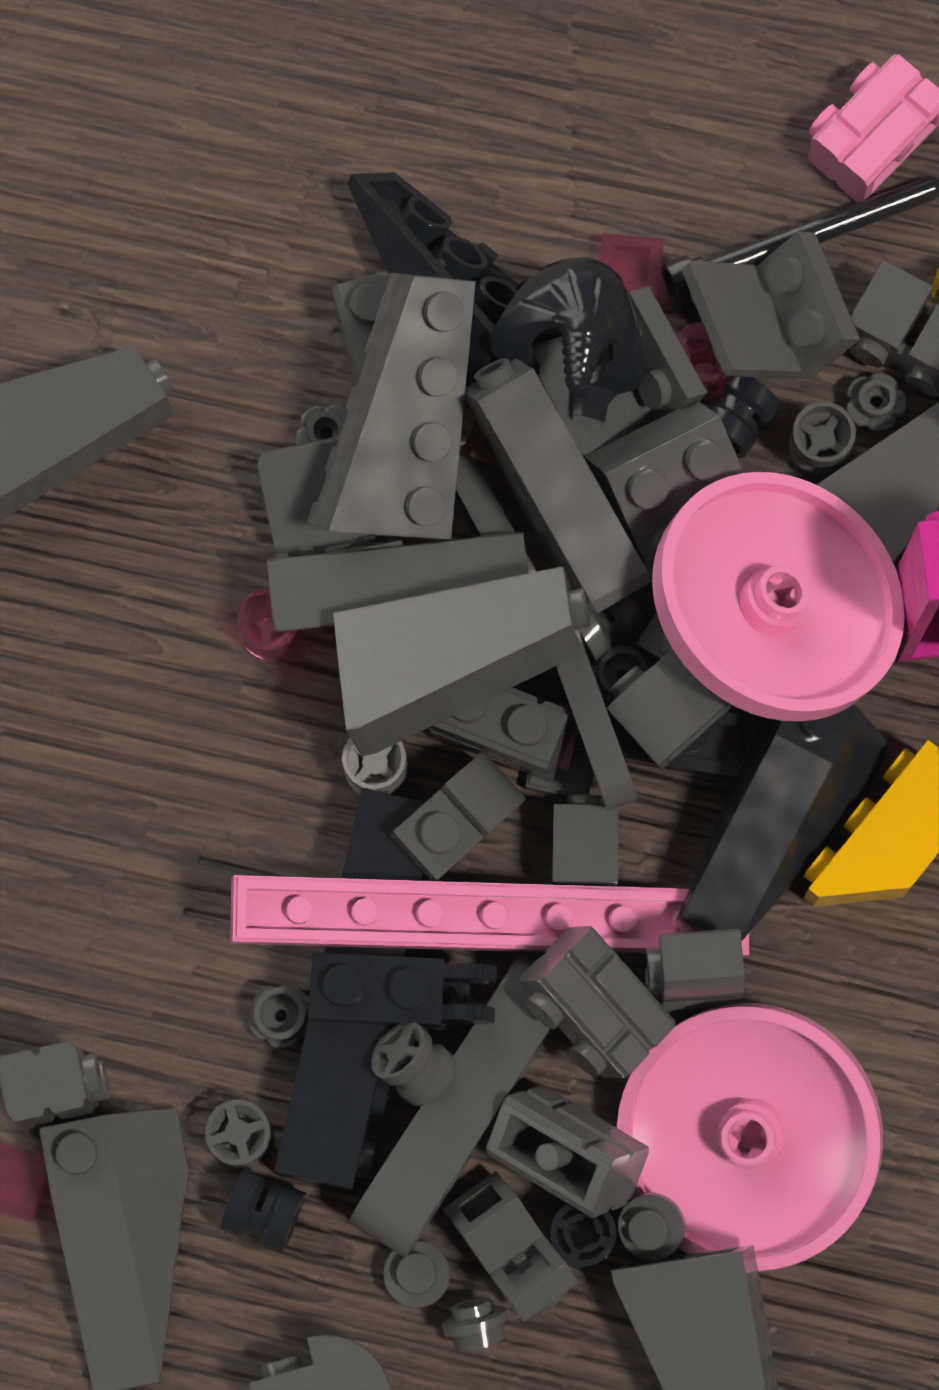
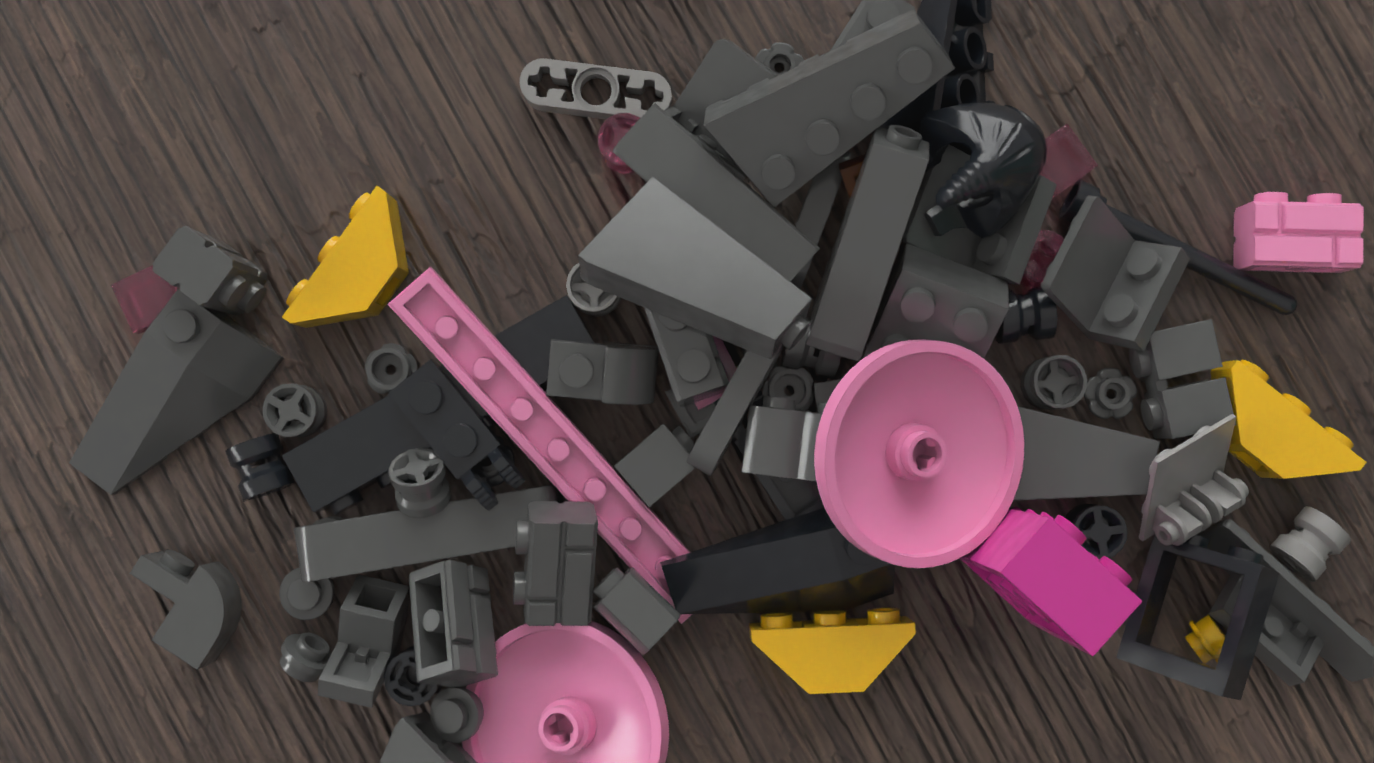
camera: 45 degrees right, 10 degrees up
(152, 628) = (556, 98): none -> light grey beam
(163, 962) = (356, 269): none -> yellow slope

